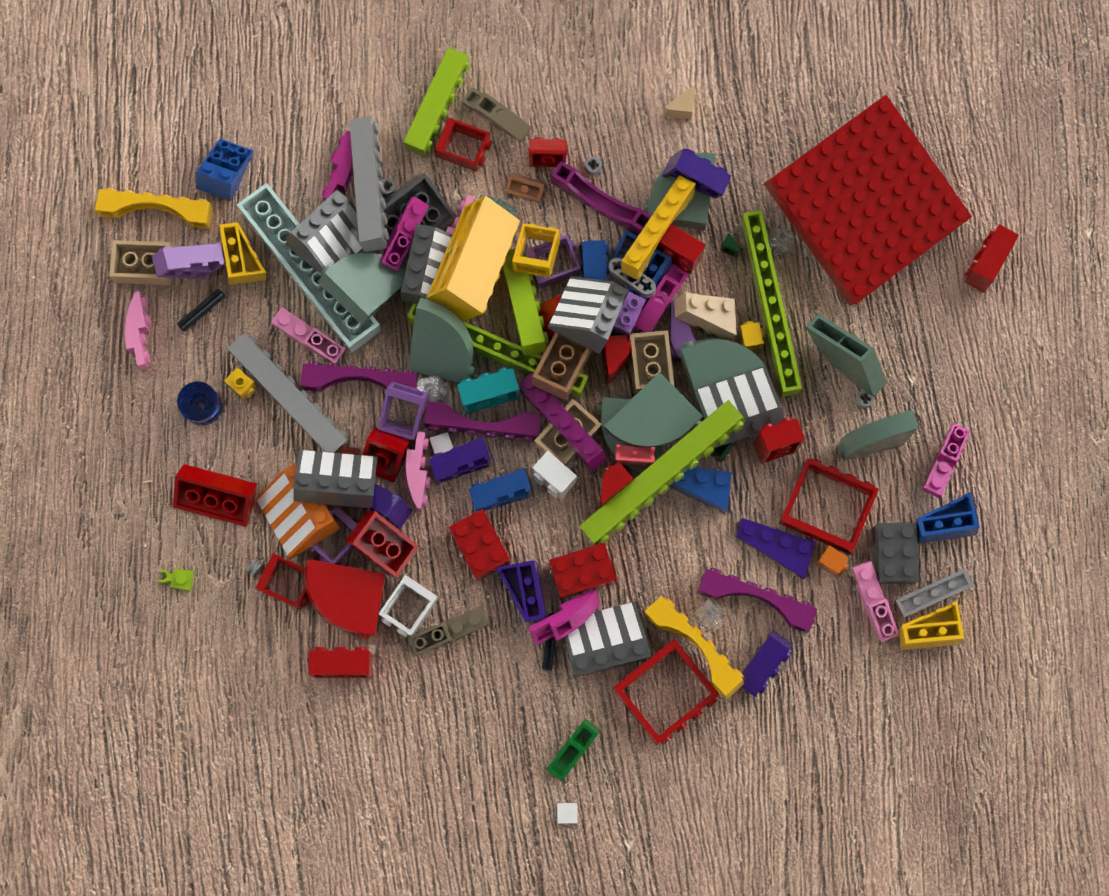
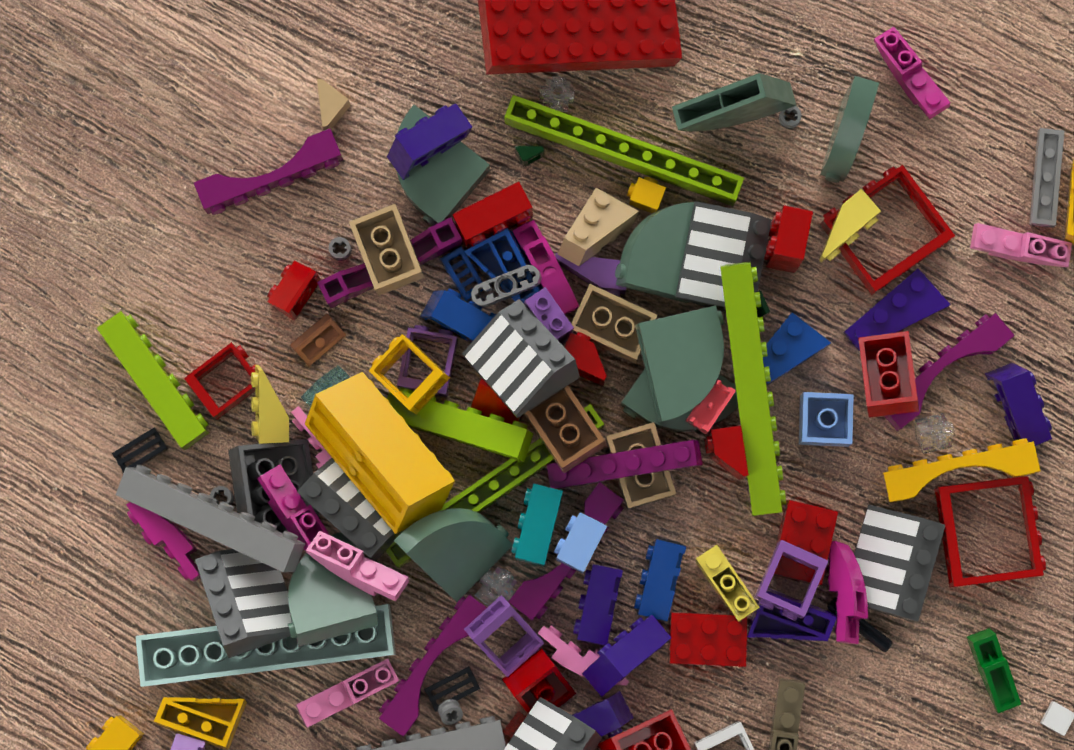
camera: 55 degrees left, 5 degrees up
(223, 169) = (82, 675): blue slope -> none
(337, 393) = (428, 690): none -> black tile
(337, 404) = (451, 717): none -> light grey bush
(389, 287) = (355, 568): none -> bright pink slope
(404, 122) = (158, 439): none -> black tile
(438, 493) = (626, 654): none -> dark purple wedge
(441, 443) = (564, 613): white tile -> none
(457, 185) = (271, 419): none -> light yellow slope
(491, 420) = (580, 542): none -> light blue brick
(497, 114) = (211, 321): dark tan slope -> none
(524, 533) = (726, 583): none -> light yellow slope
(553, 476) = (680, 509): white brick -> none
(569, 566) = (800, 556): none -> medium lavender window
(608, 190) = (386, 249): none -> tan brick
(644, 114) = (222, 191): none -> magenta arch
(644, 246) = (467, 221): yellow arch -> none
(674, 537) = (826, 419): none -> light blue brick
(729, 558) = (888, 374): none -> red brick
(818, 473) = (851, 218): none -> light yellow slope
(833, 561) = (950, 263): orange brick -> none
(896, 553) = (981, 190): dark grey brick -> none
(949, 522) = (980, 112): blue wedge -> none

